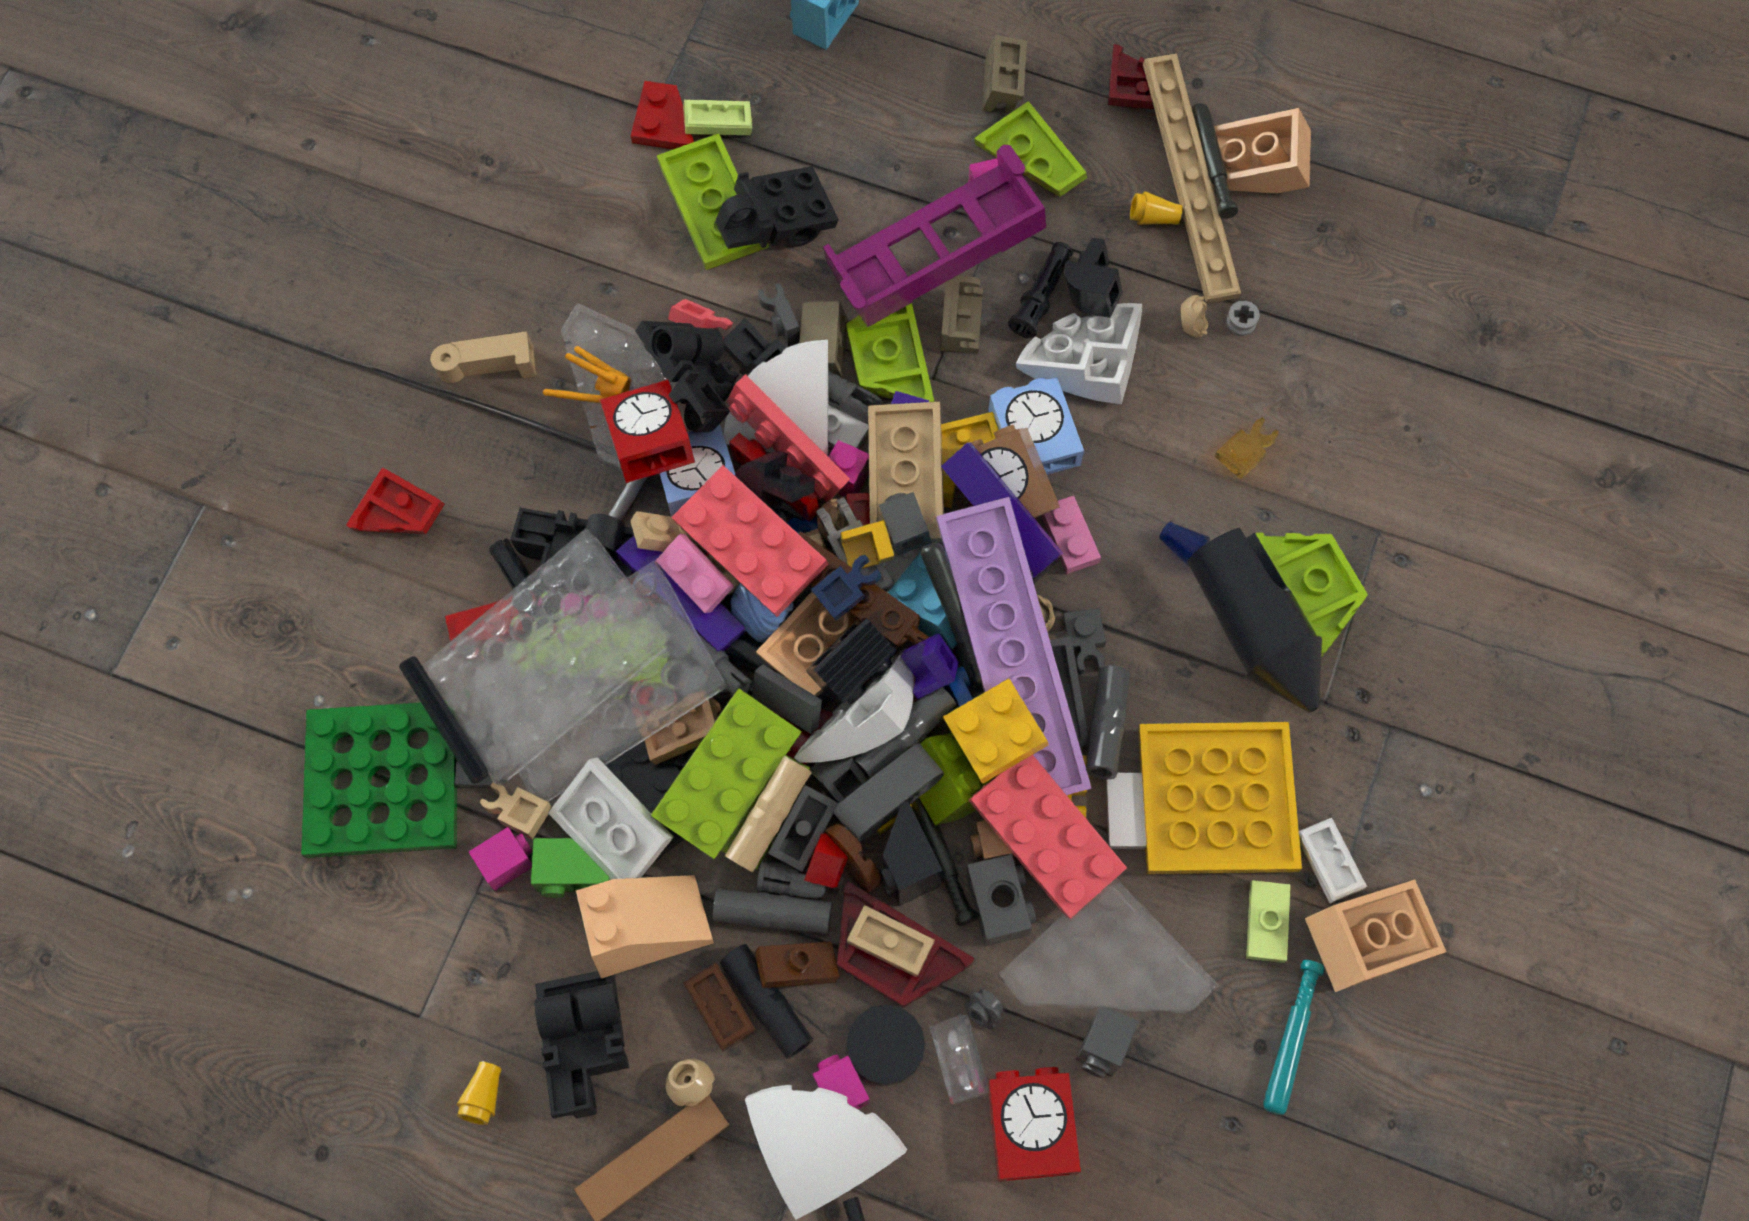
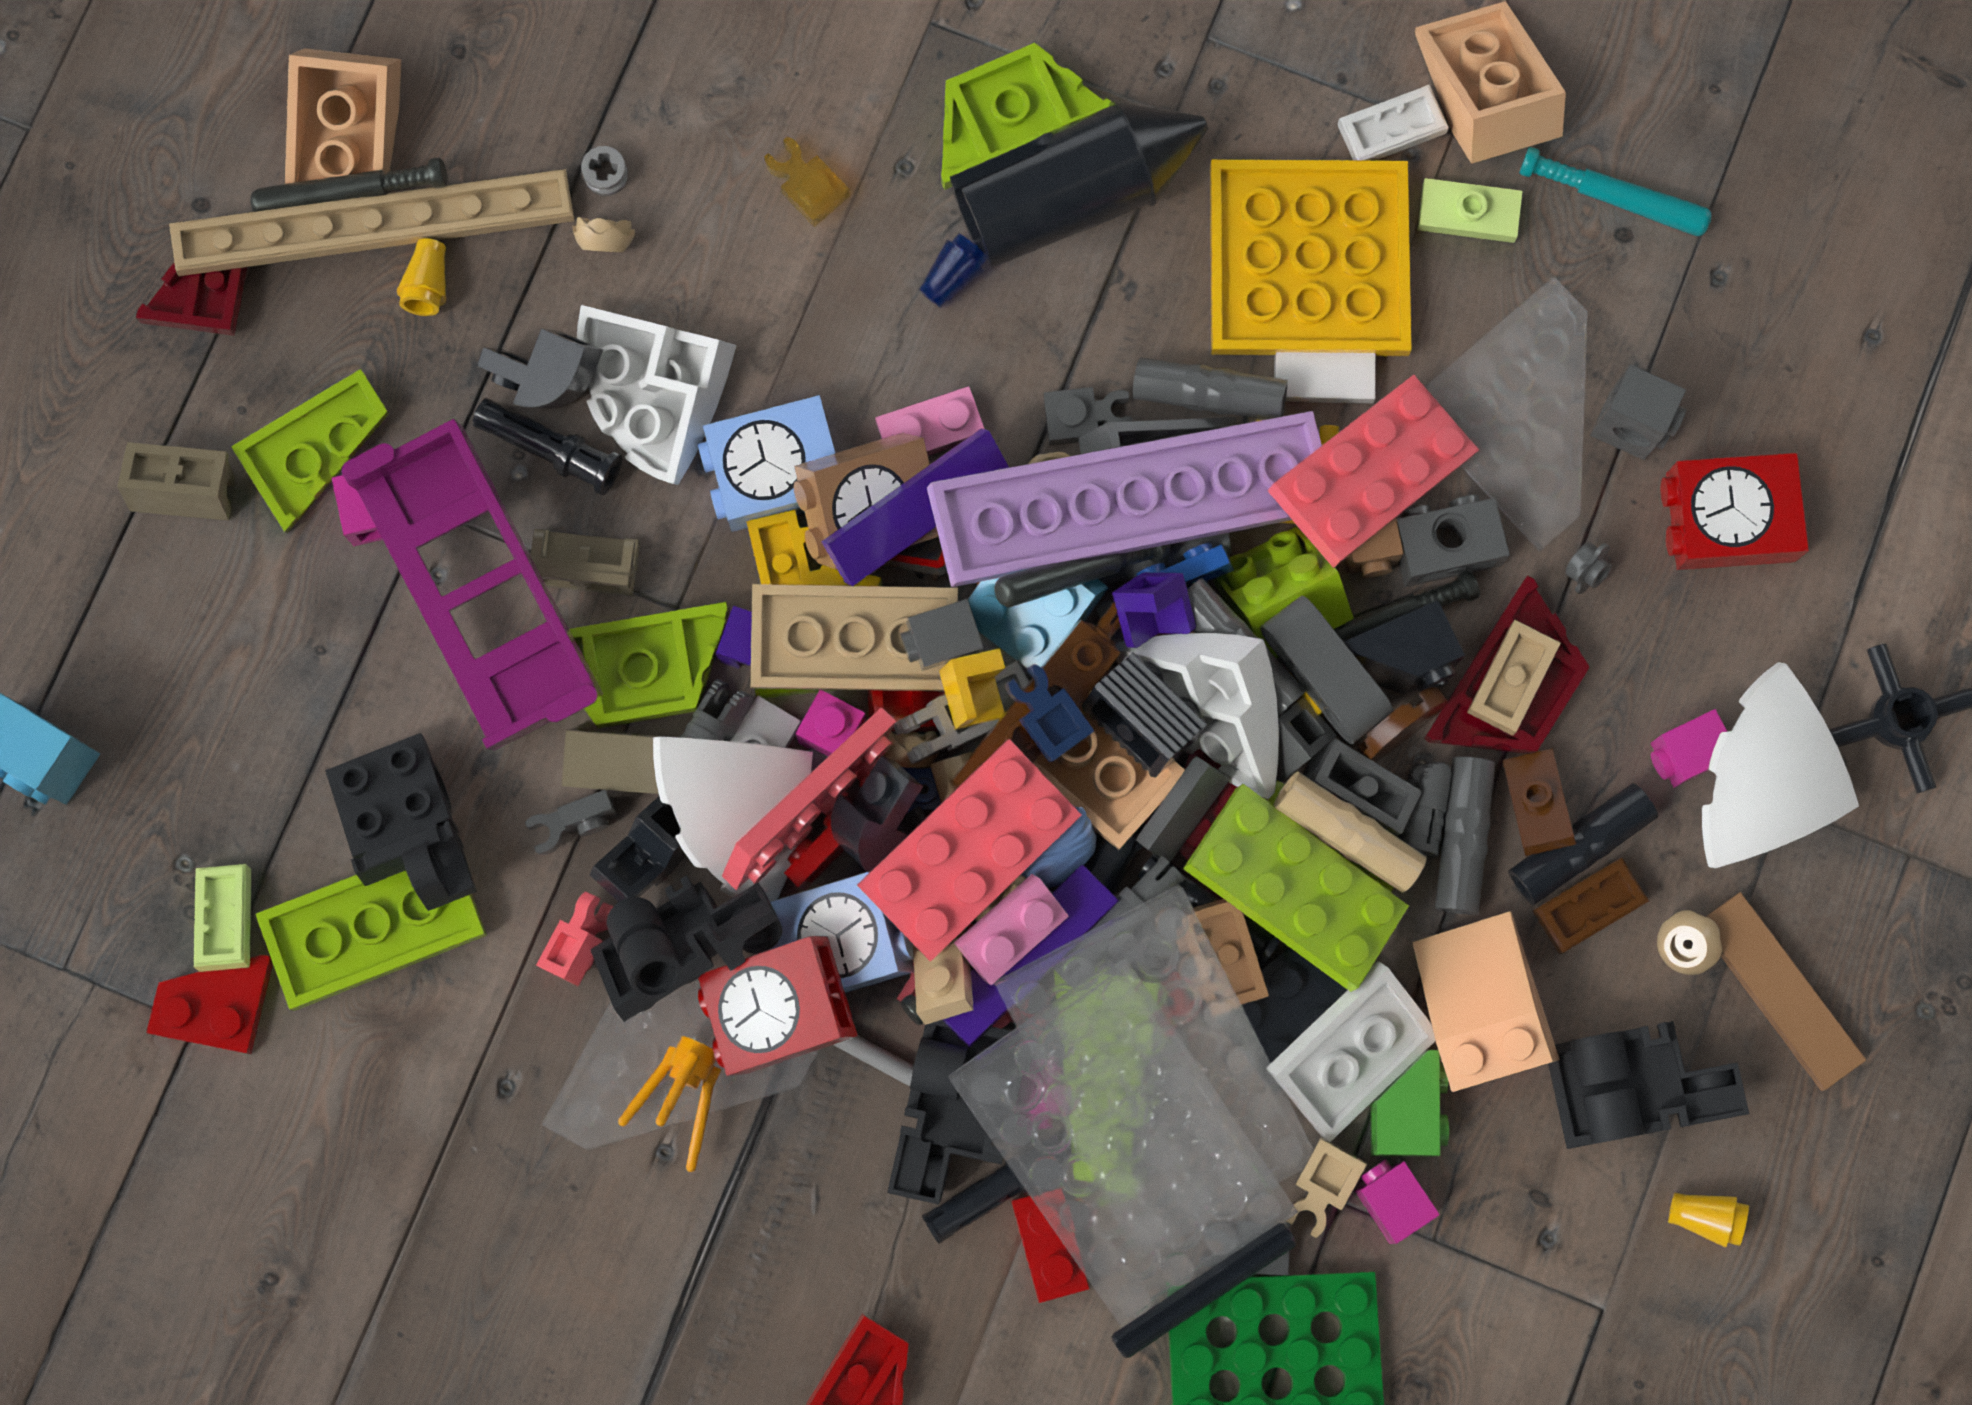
camera: 90 degrees left, 10 degrees up
(484, 356) = (627, 1310): tan leg -> none
(826, 863) = (1413, 758): red slope -> none
(885, 1045) = (1633, 693): black tile -> none
(959, 1059) = (1654, 599): clear plate -> none
(996, 730) = (1250, 522): yellow plate -> none

